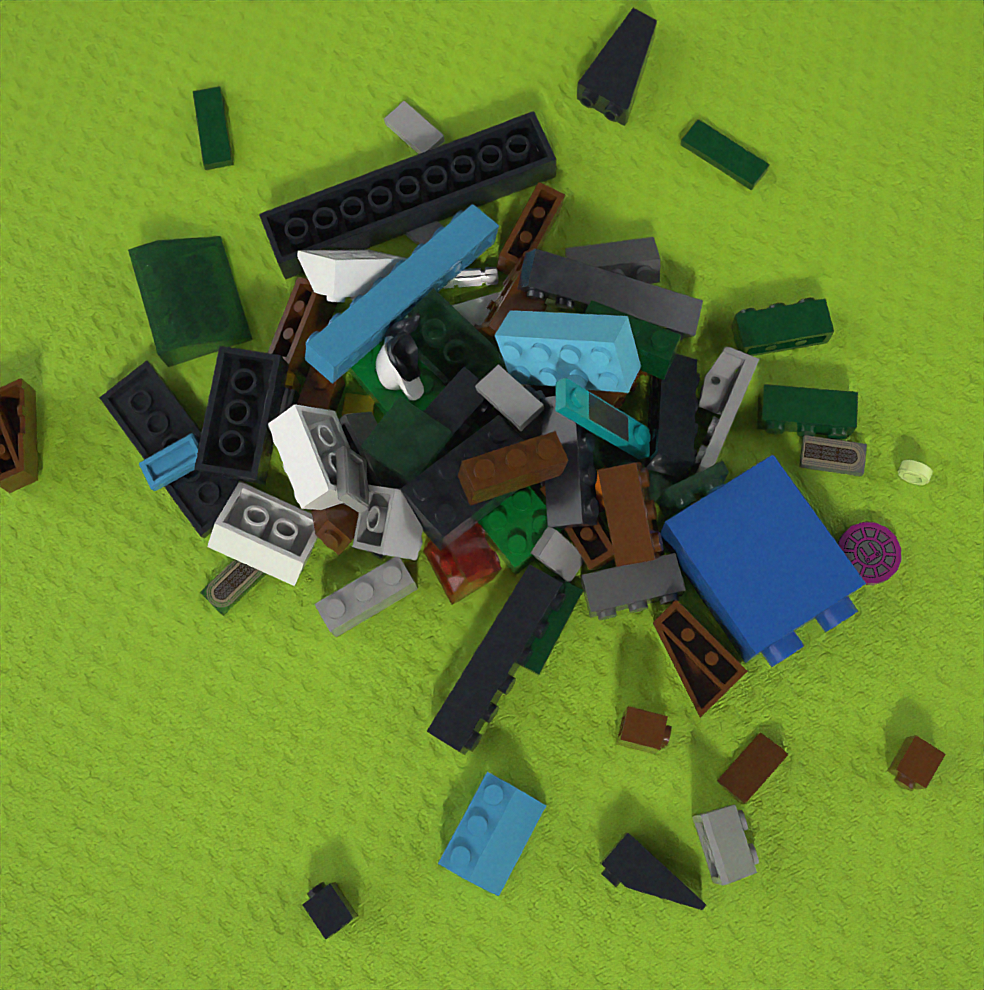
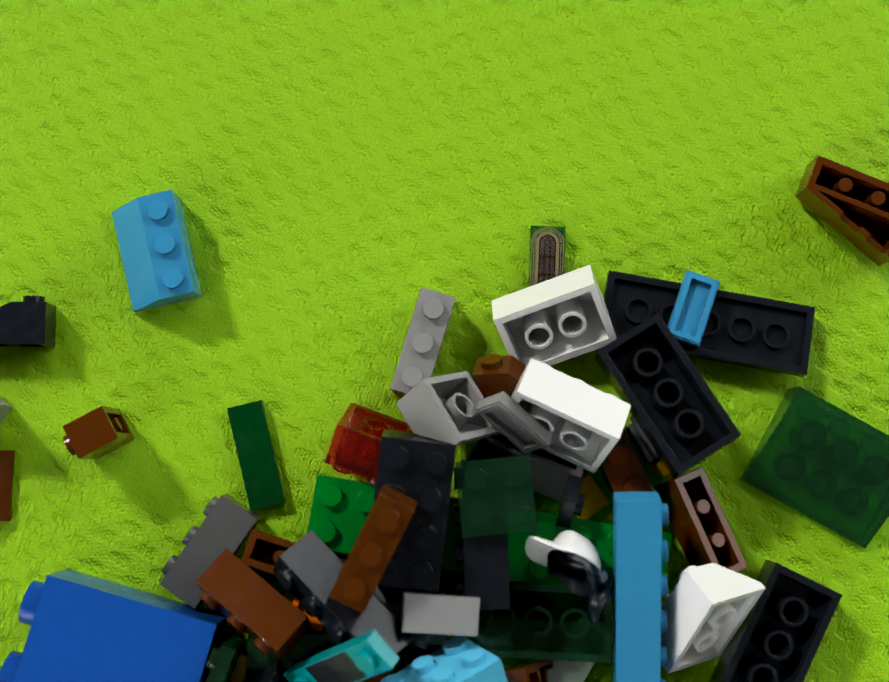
camera: 130 degrees right, 10 degrees up
(329, 908) = (230, 88): black brick -> none
(366, 405) = (571, 503): none -> black plate
(497, 660) = (268, 389): black brick -> none
(558, 554) = (292, 518): light grey tile -> none
(698, 657) = (101, 535): reddish brown wedge -> none

